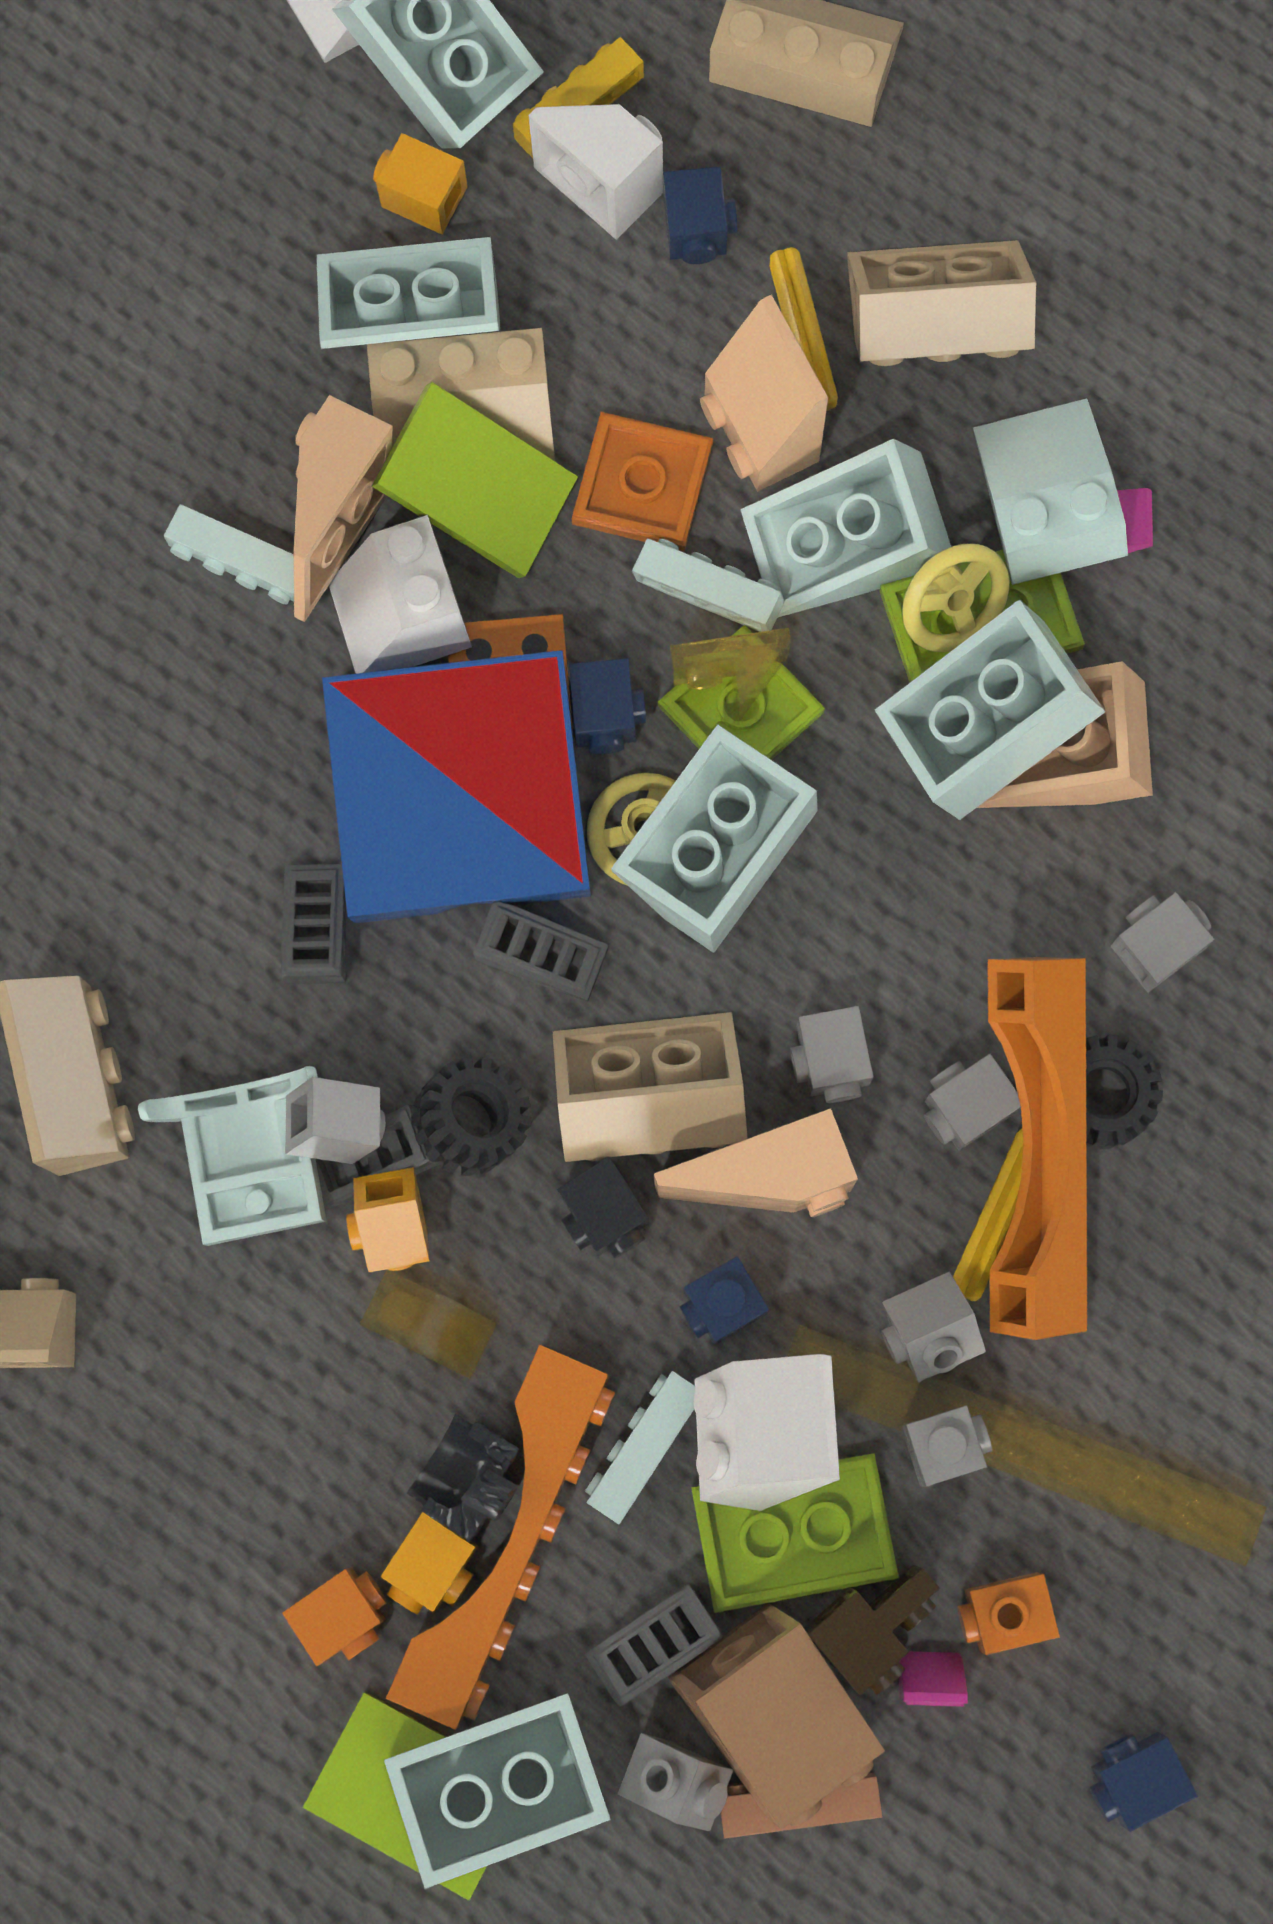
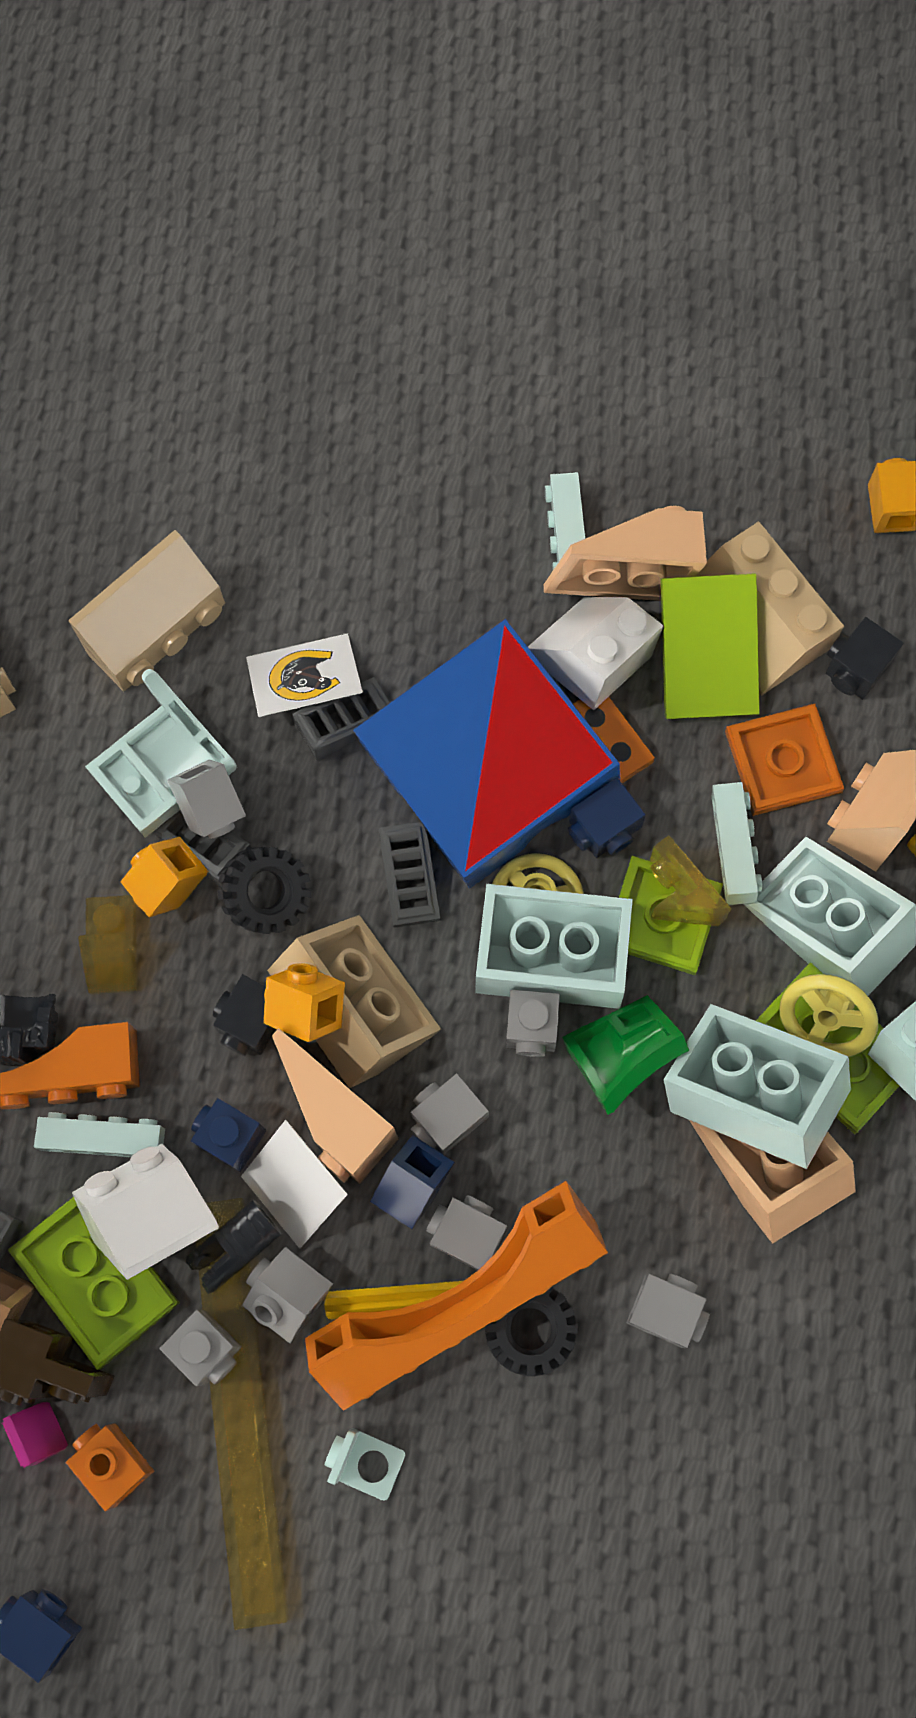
camera: 60 degrees right, 5 degrees down
(237, 941) = (303, 675): none -> sticker
(407, 293) = (812, 528): light aqua slope -> none
(581, 332) = (862, 658): none -> black brick
(635, 1134) = (304, 1002): none -> light orange brick
(785, 908) = (532, 1022): none -> light grey brick
(821, 1256) = (293, 1184): none -> white sticker
(850, 1339) = (241, 1238): none -> black hinge
(870, 827) = (624, 1049): none -> green plate
(894, 1139) = (404, 1189): none -> dark blue brick
(1131, 1358) = (344, 1460): none -> light aqua bracket

